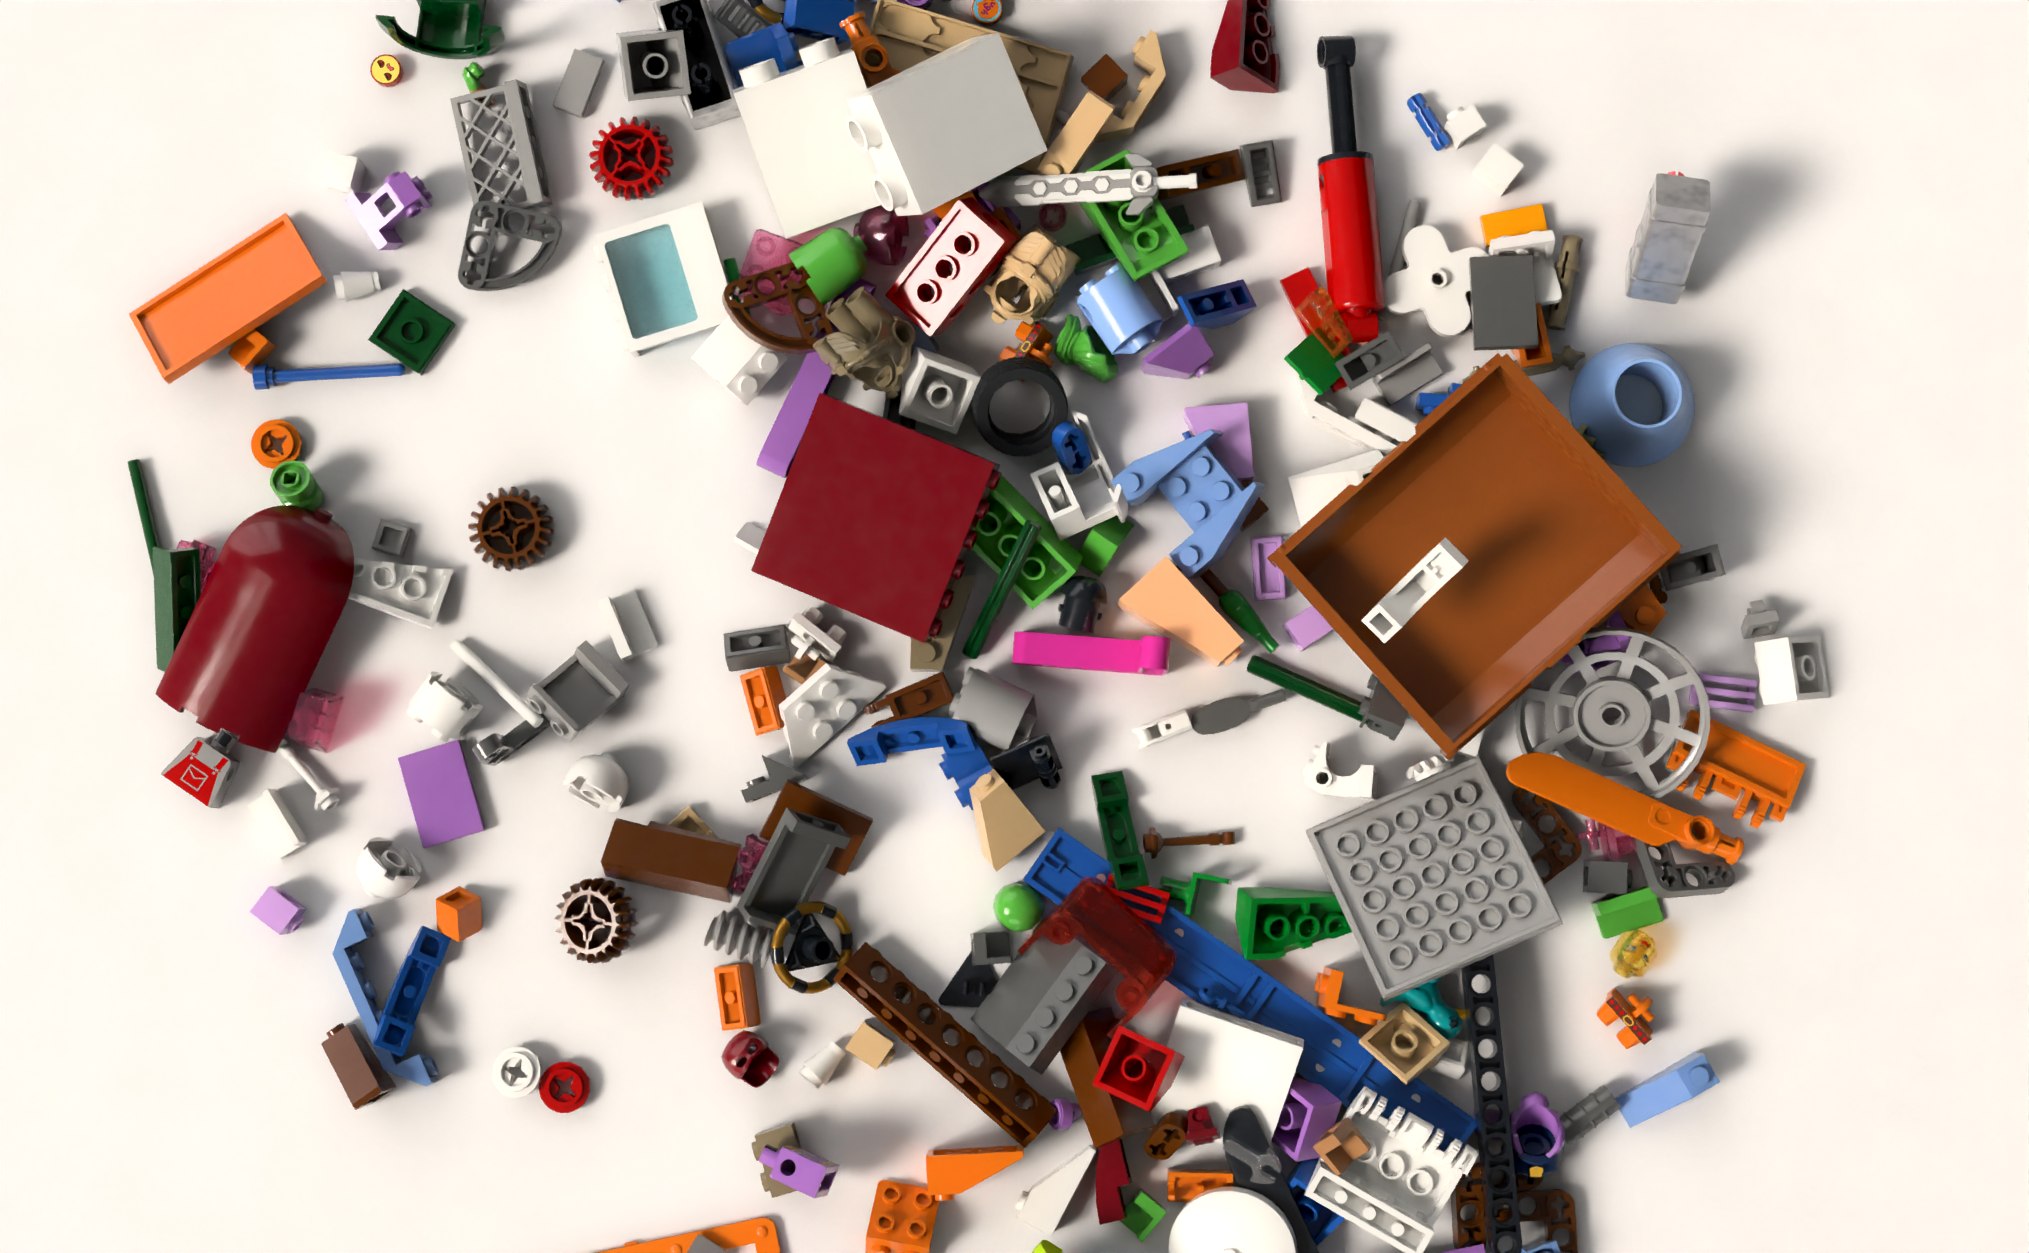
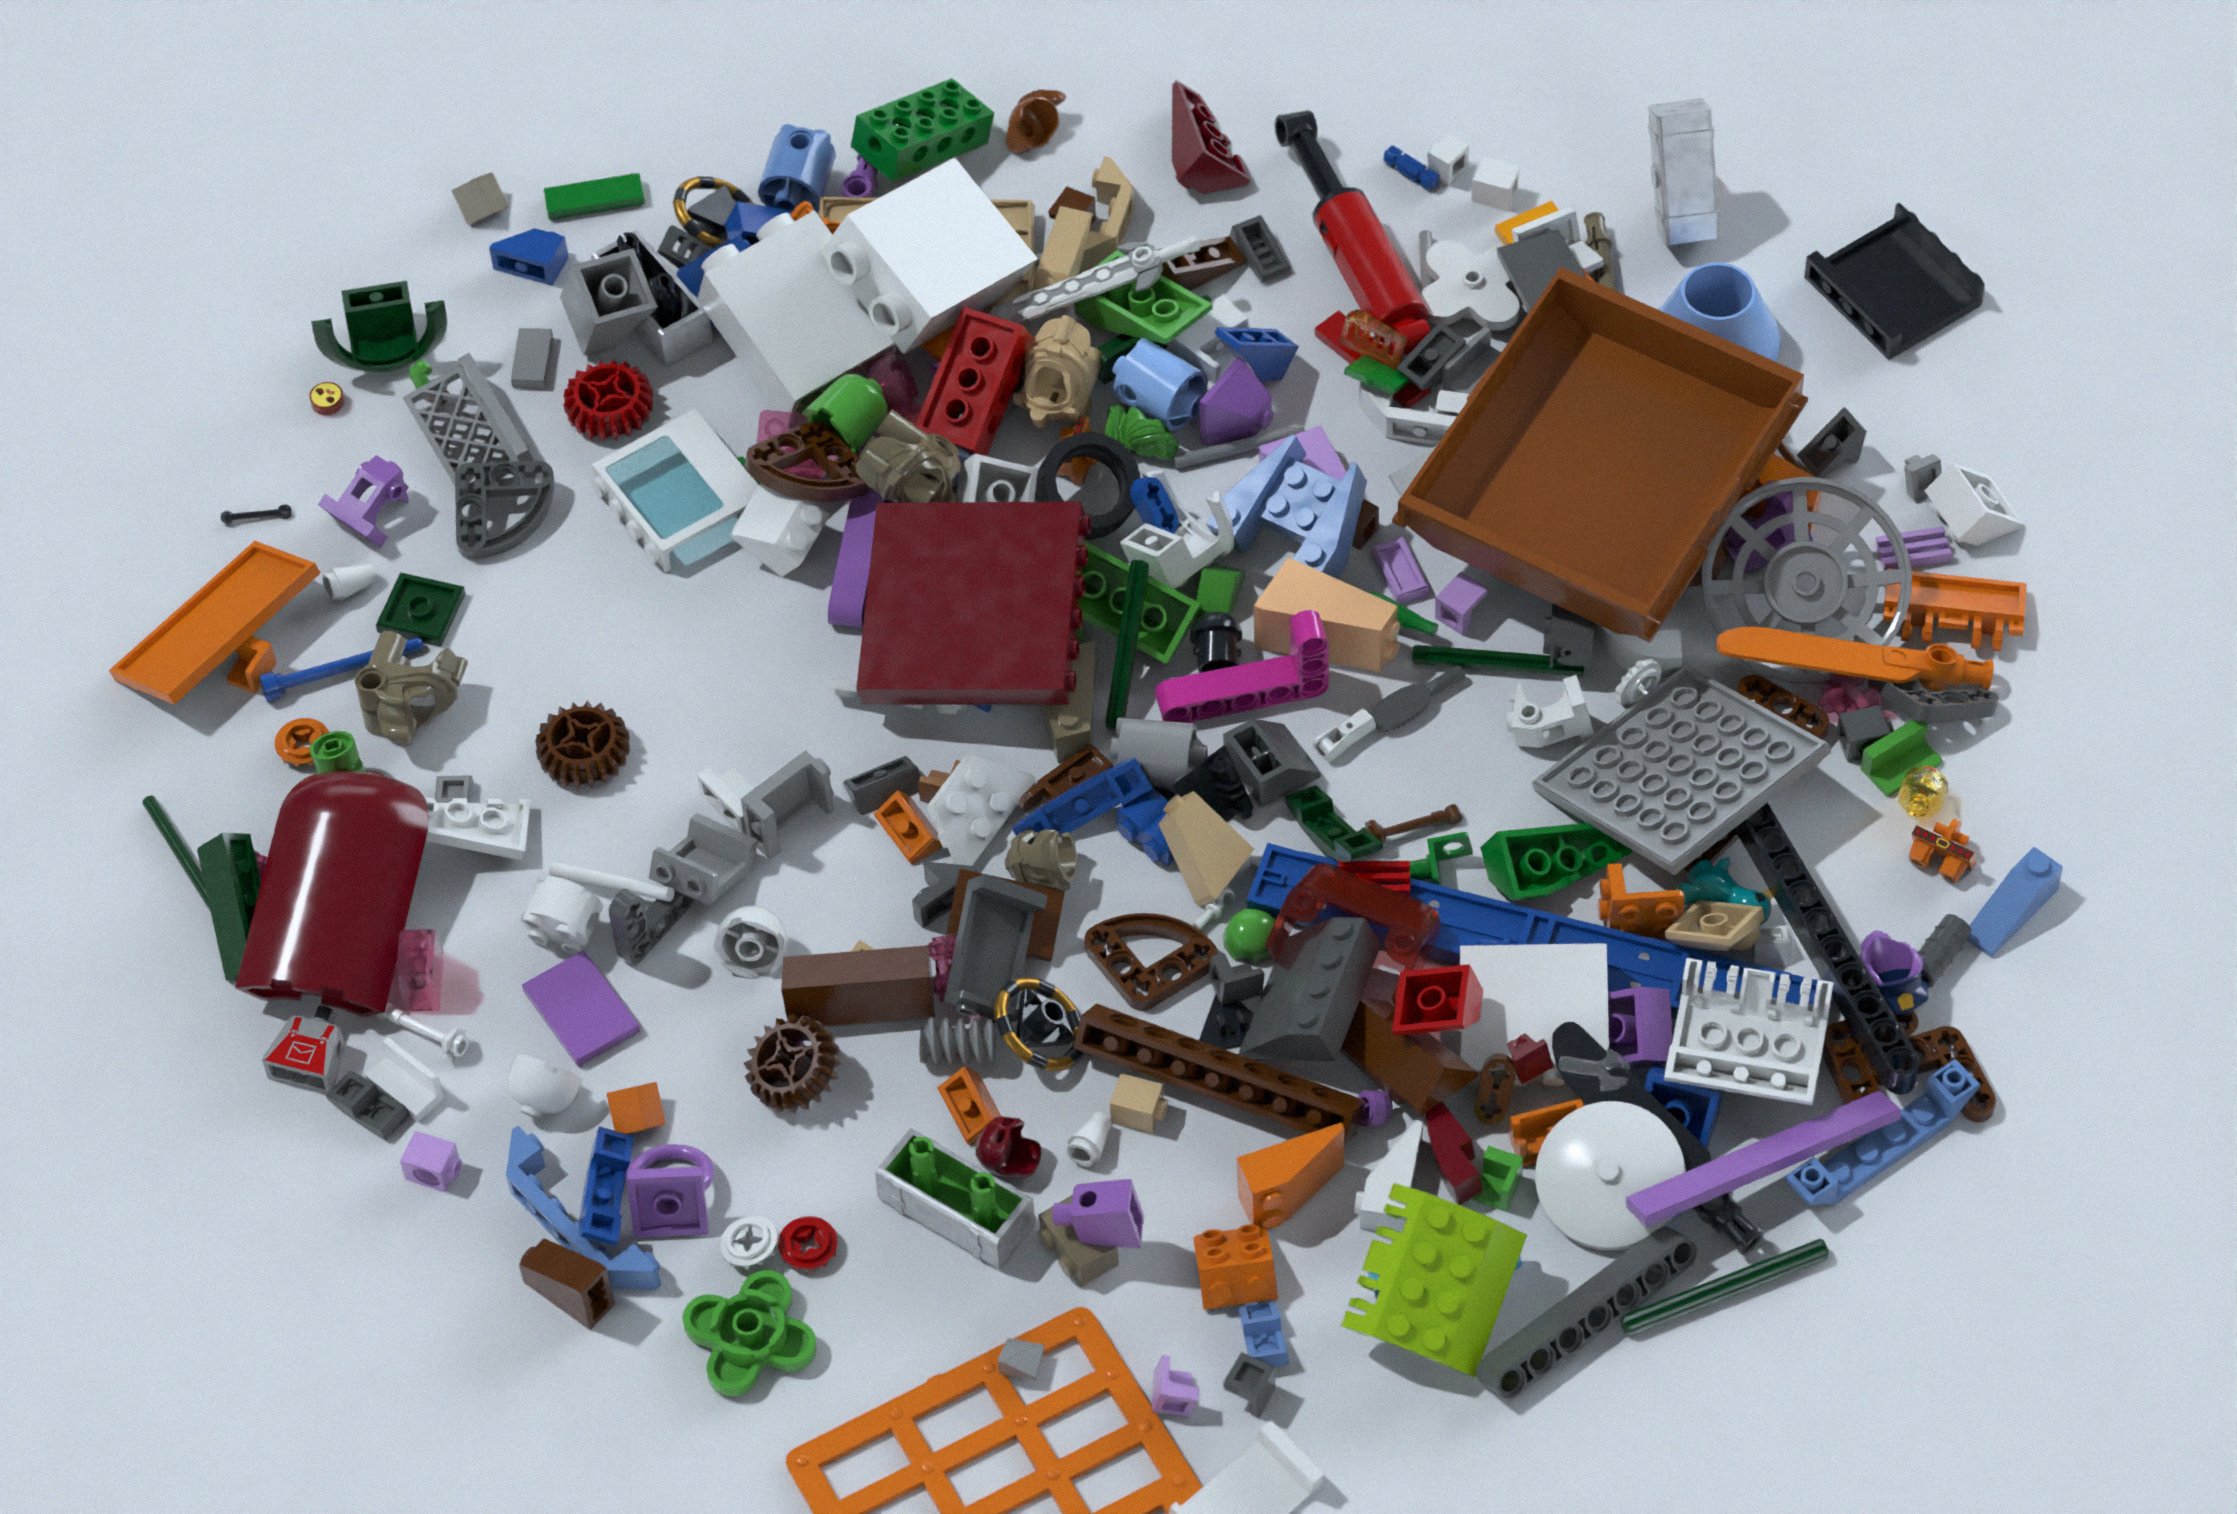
camera: 20 degrees left, 30 degrees down
(242, 832) = (366, 1105): none -> dark grey slope
(320, 183) = (284, 512): none -> black hinge
(345, 173) = (308, 487): white panel -> none
(364, 441) = (391, 683): none -> dark tan helmet
(458, 1019) = (669, 1198): none -> medium lavender tile
(478, 1177) = (749, 1333): none -> bright green plant
(660, 650) = (785, 797): none -> light grey panel
(692, 1093) = (955, 1198): none -> piece
(813, 640) = (939, 750): white hips -> none
(864, 785) = (1043, 859): none -> dark tan helmet
(923, 920) = (1151, 977): none -> reddish brown beam
(991, 872) = (1214, 910): none -> white hand
(1090, 739) = (1269, 760): none -> dark grey slope
(1172, 387) = (1233, 447): none -> light grey bar
(1341, 1146) = (1686, 1020): medium nougat panel -> none
(1414, 590) = (1549, 480): white arch -> none
(1818, 398) = (1896, 283): none -> black panel

